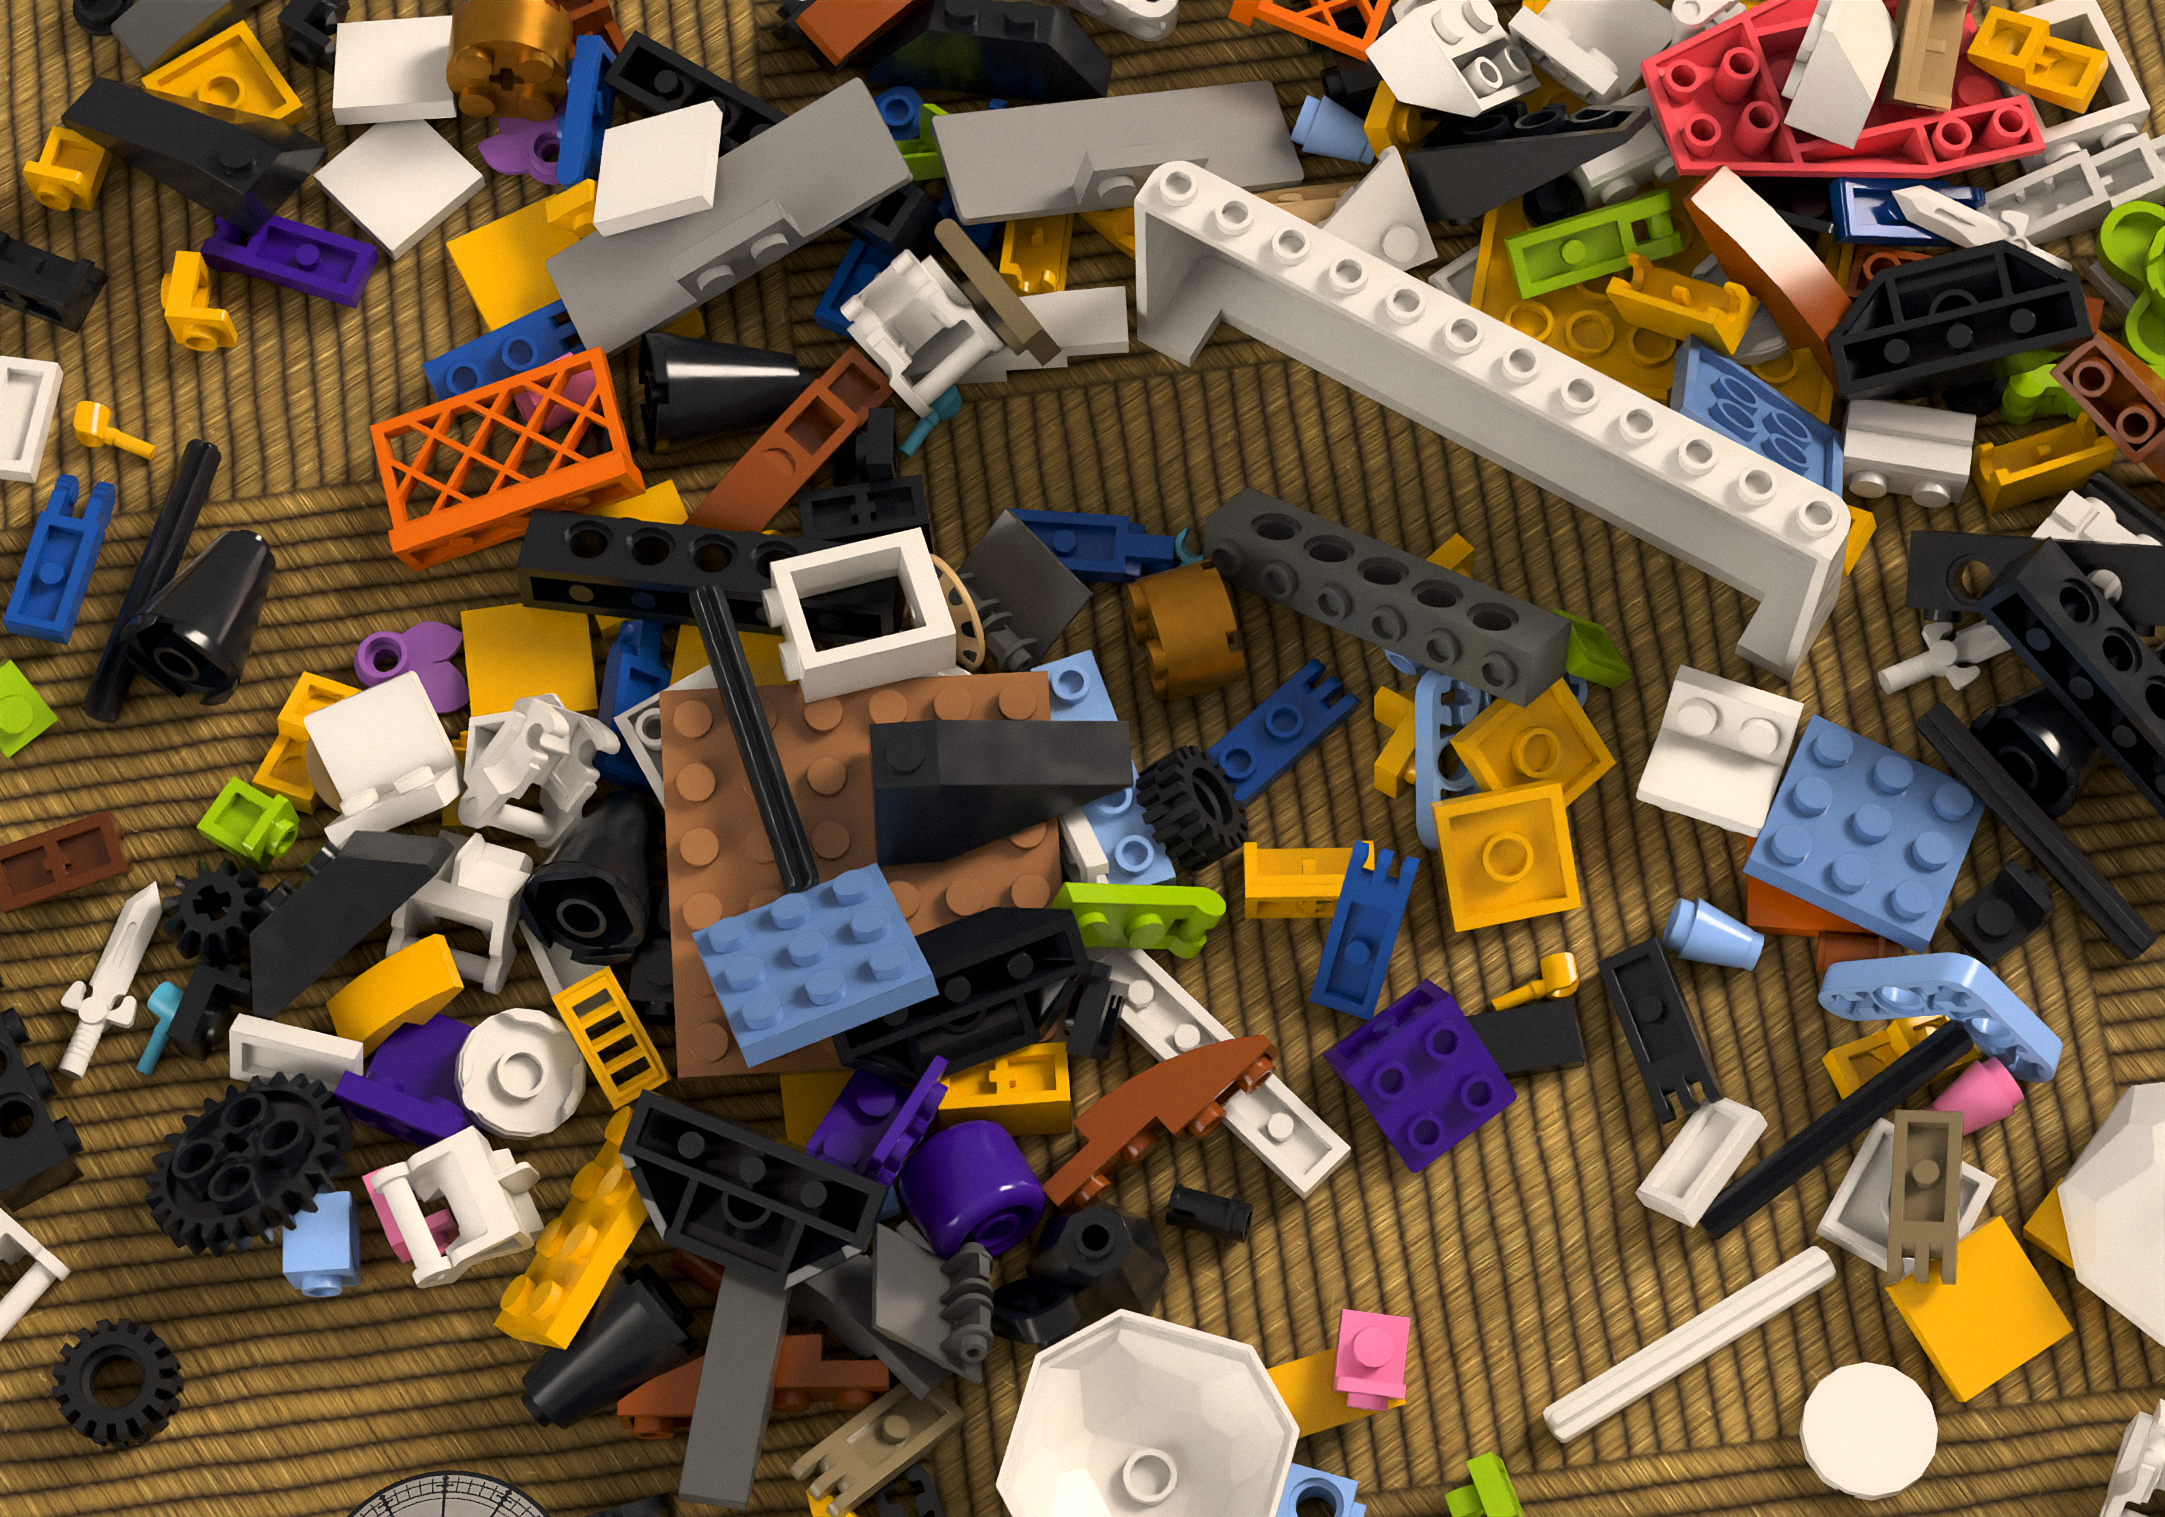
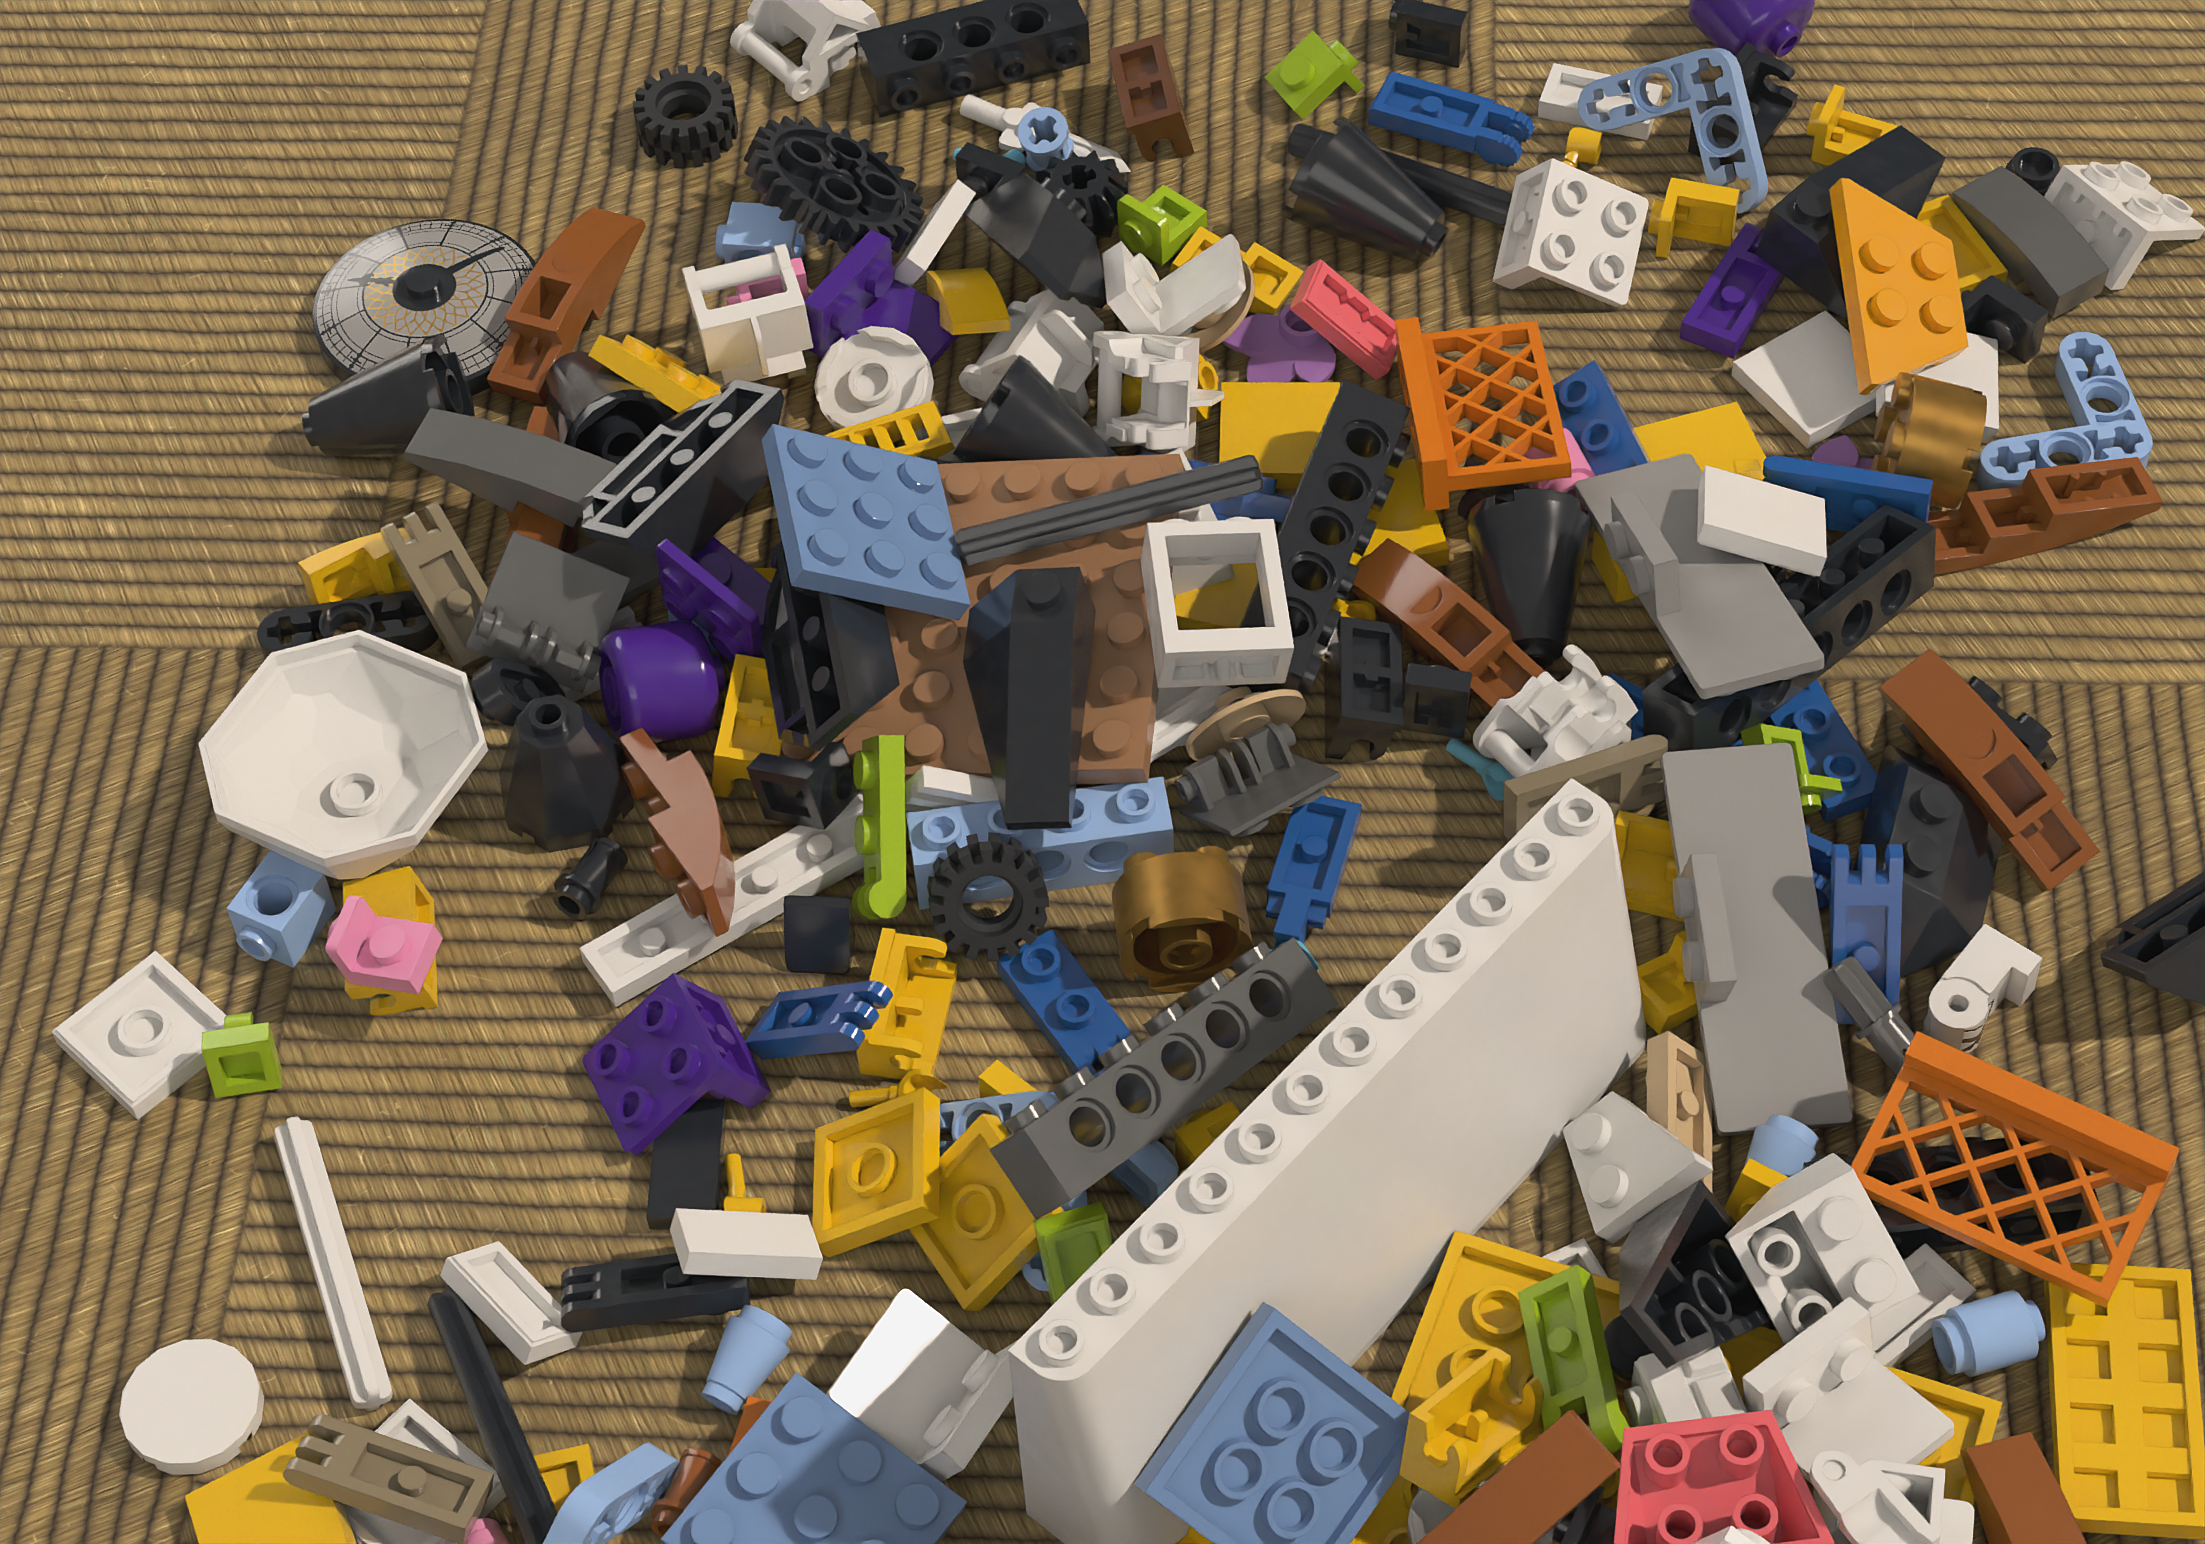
camera: 100 degrees right, 15 degrees down
(57, 299) = (1691, 94): none -> light blue beam
(135, 943) = (1049, 137): none -> light blue bush
(244, 414) = (1571, 232): none -> white bracket
(328, 86) = (1896, 288): none -> light orange wing
(387, 604) = (1346, 319): none -> coral plate
(435, 1435) = (559, 296): none -> dark orange slope
(1099, 58) = (1867, 917): none -> blue hinge
(1179, 56) = (1870, 1011): none -> dark grey axle
(1240, 977) = (818, 934): none -> black slope
(1411, 849) = (910, 1082): none -> yellow hand
(1608, 951) = (745, 1244): none -> white tile

